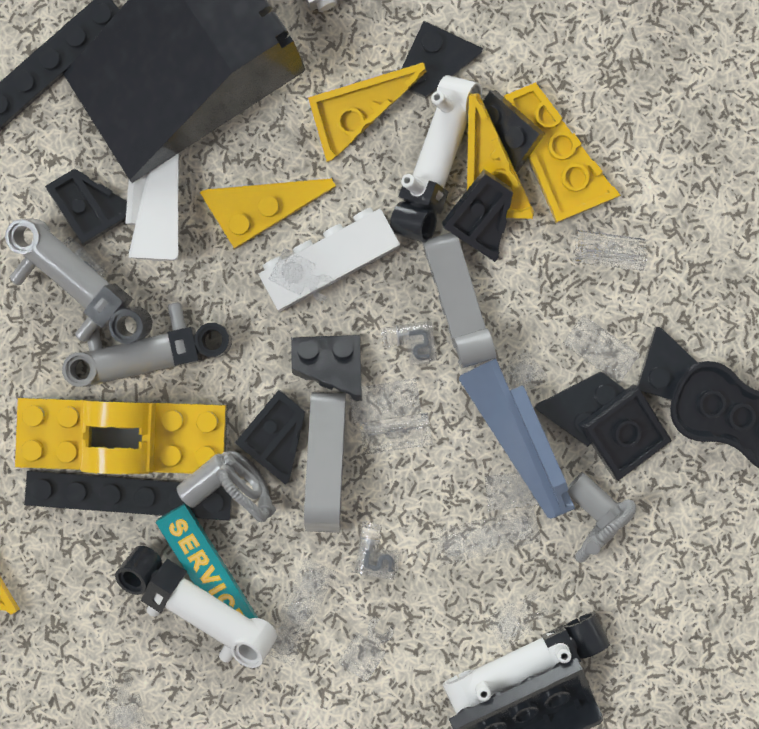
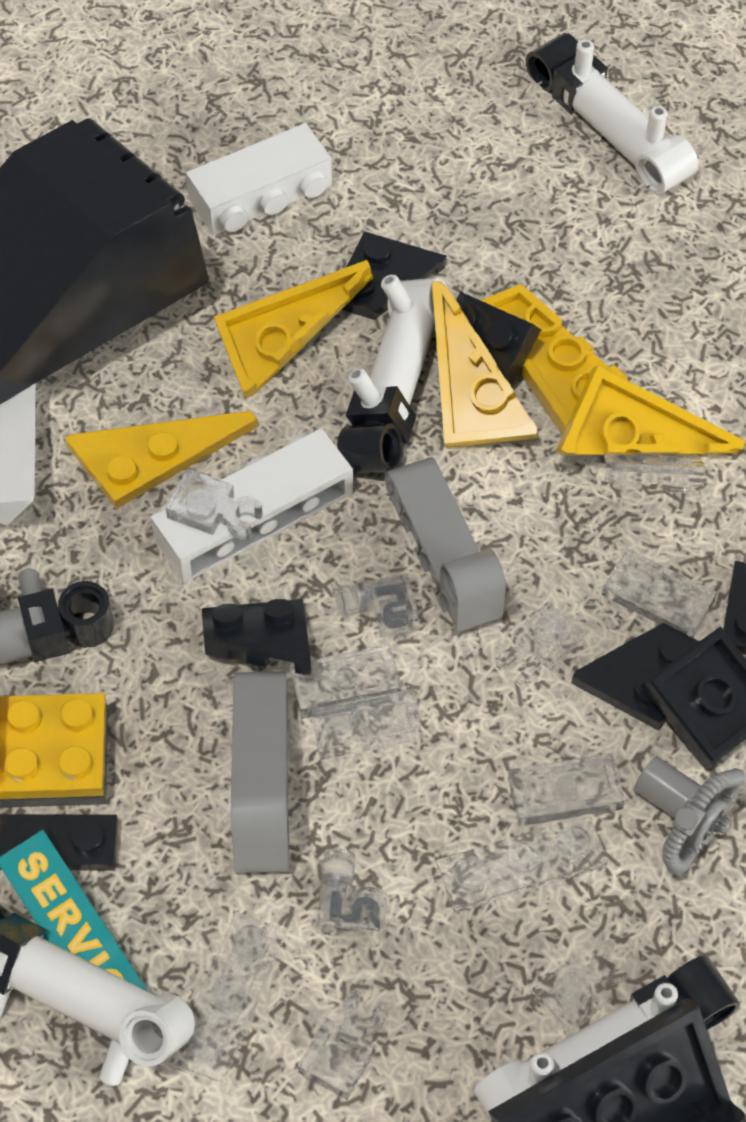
camera: 10 degrees left, 30 degrees down
(220, 472) = (87, 777): light grey piece -> none
(275, 436) = (181, 739): black wing -> none
(481, 214) = (465, 430): black wing -> none
(520, 435) = (556, 702): sand blue wedge -> none
(598, 214) = (629, 420): none -> yellow wing

